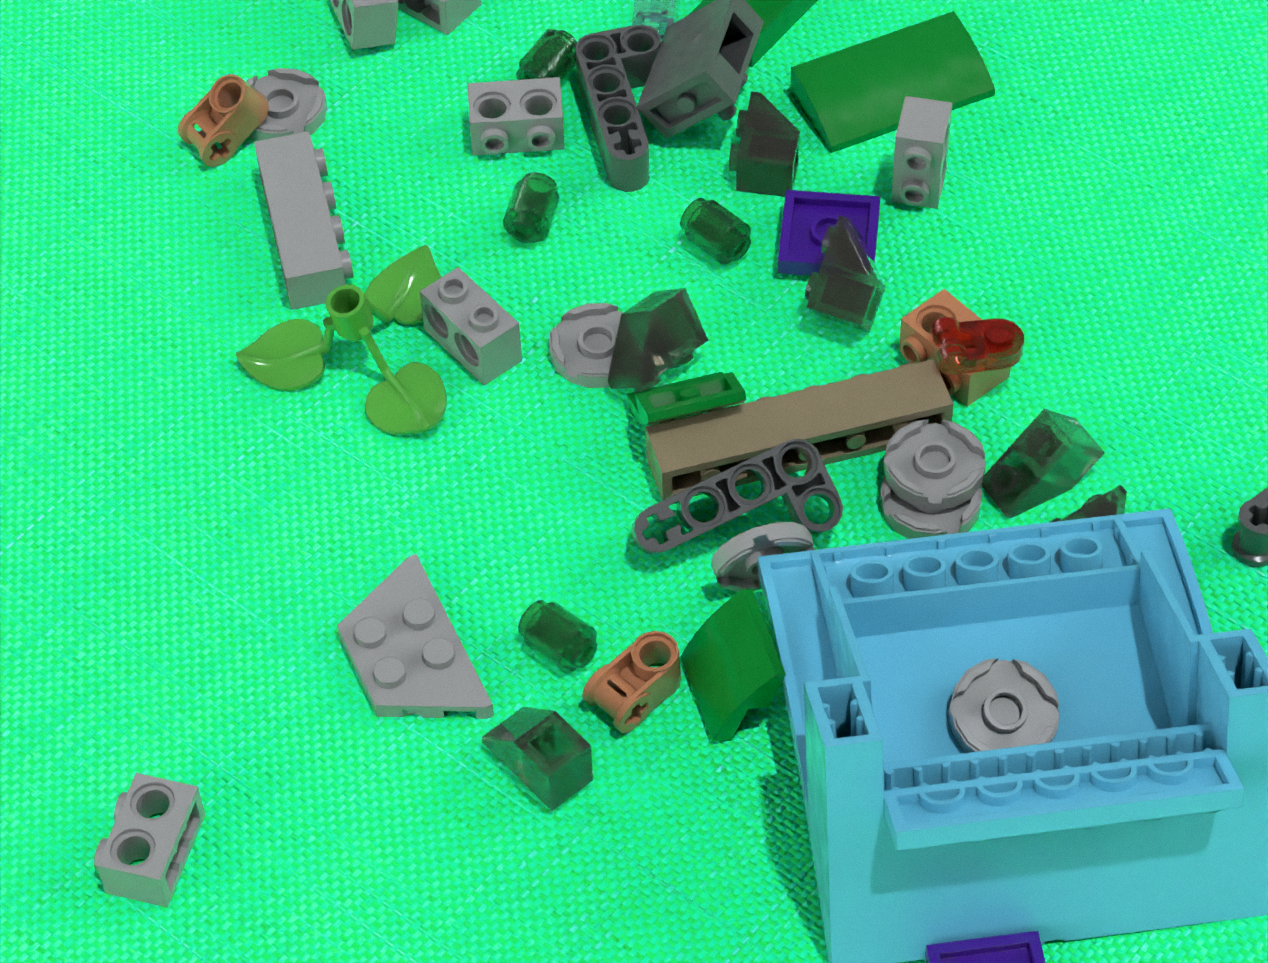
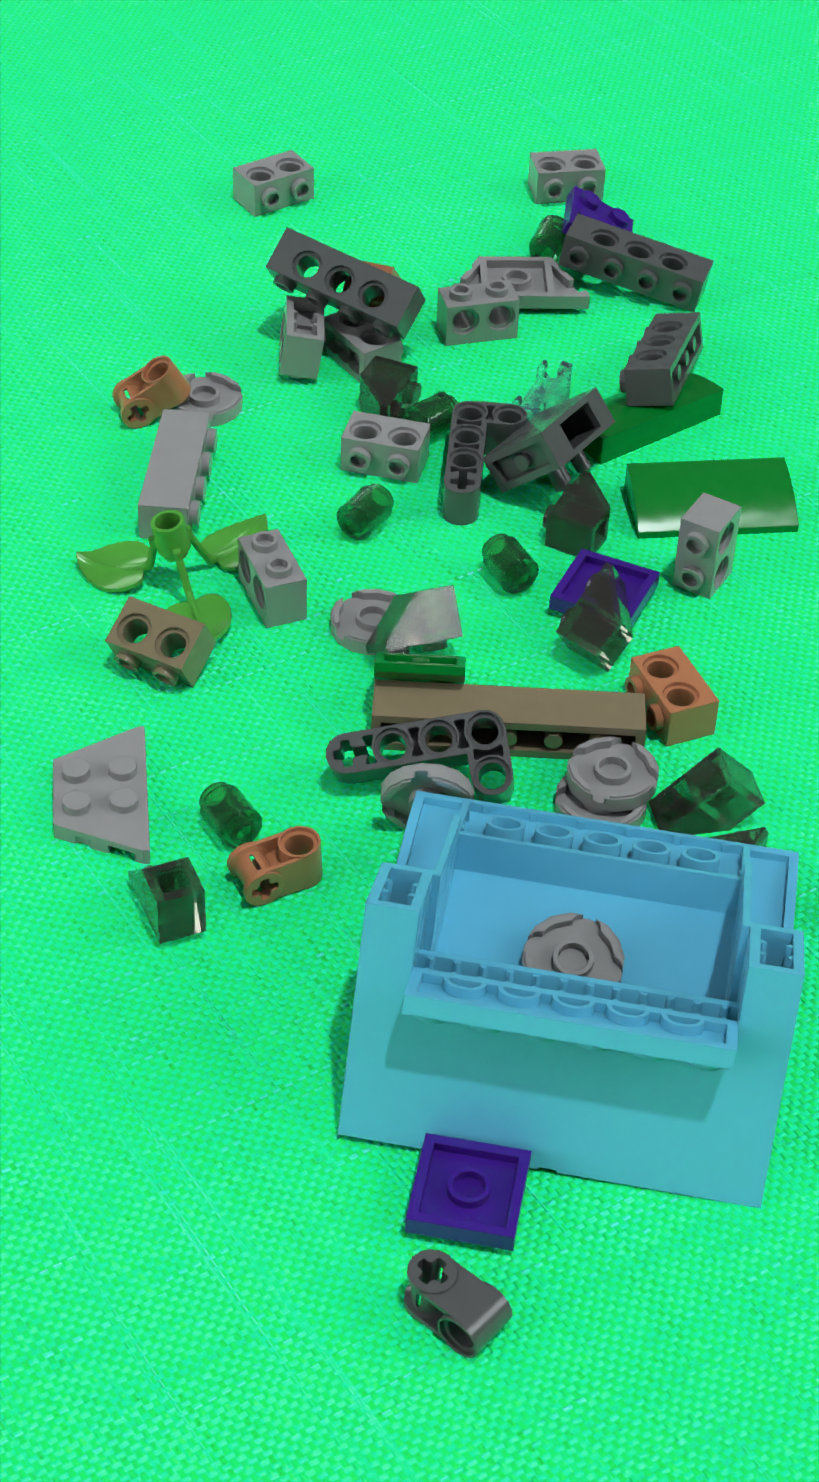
camera: 15 degrees right, 10 degrees down
(392, 434) = (165, 635): none -> dark tan brick
(485, 41) = (388, 387): none -> clear smoke slope
(732, 665) = (355, 867): green slope -> none
(994, 344) = (685, 690): clear red plate -> none

